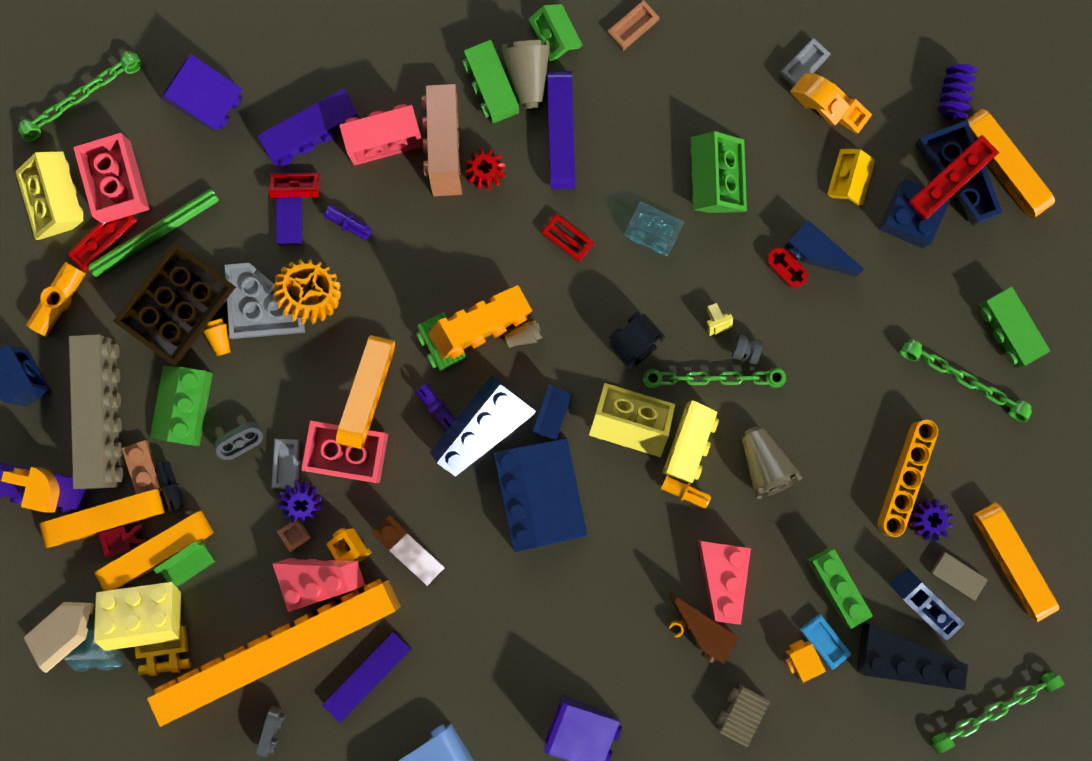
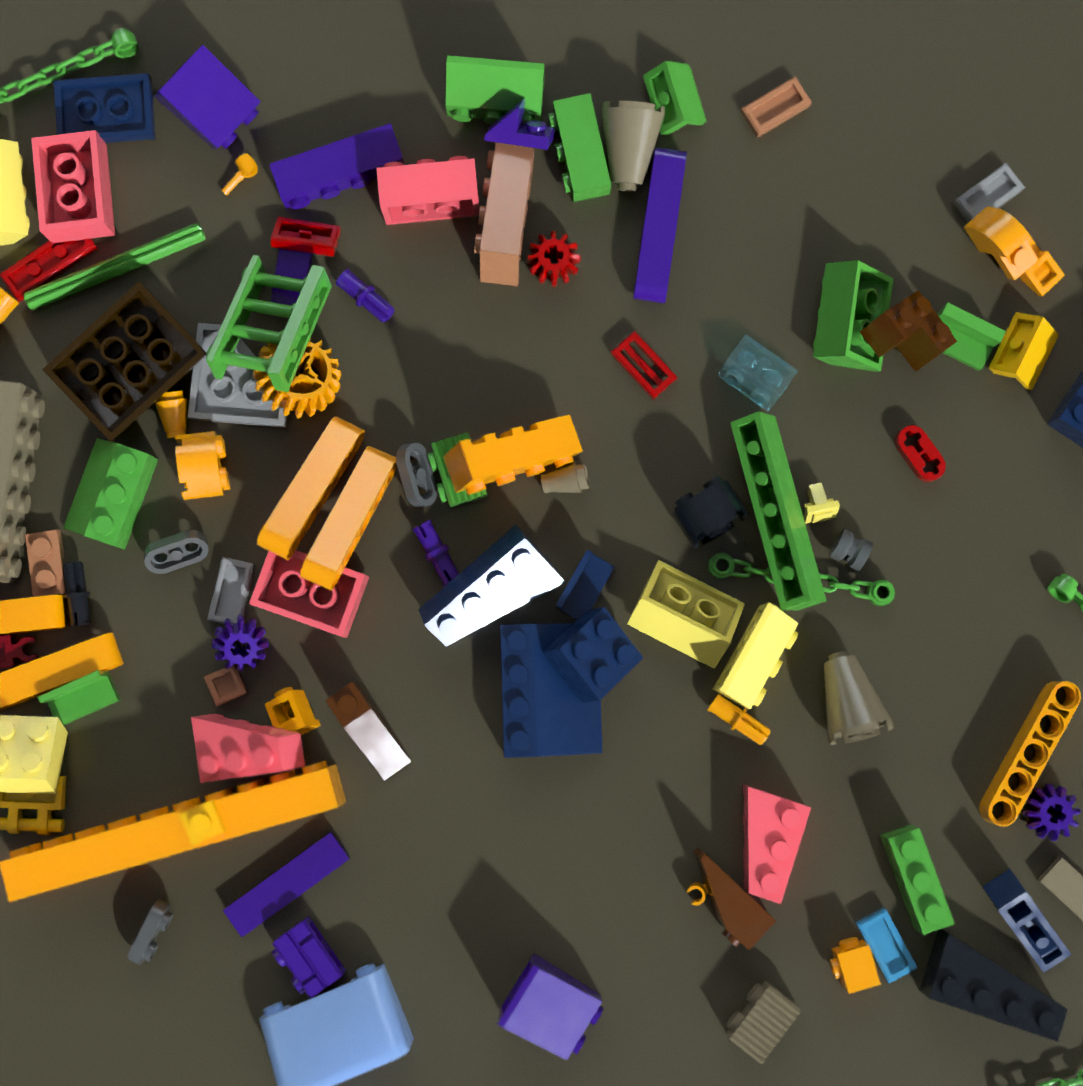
camera: 10 degrees right, 0 degrees up
(130, 111) = (112, 105): none -> dark blue plate
(241, 141) = (247, 169): none -> light orange hand
(245, 371) = (200, 464): none -> light orange brick
(295, 641) = (202, 822): none -> yellow plate
(298, 266) = (291, 341): none -> bright green fence
(332, 374) = (310, 488): none -> light orange beam
(392, 729) = (308, 958): none -> dark purple brick
(410, 350) = (416, 474): none -> dark grey plate
(418, 50) = (492, 87): none -> bright green slope
(437, 78) = (512, 130): none -> dark purple slope
(567, 463) = (593, 655): none -> dark blue brick
(687, 330) = (778, 512): none -> bright green brick
(765, 176) = (912, 329): none -> reddish brown brick
(804, 174) = (974, 336): none -> bright green panel
(817, 249) = (964, 436): dark blue slope -> none

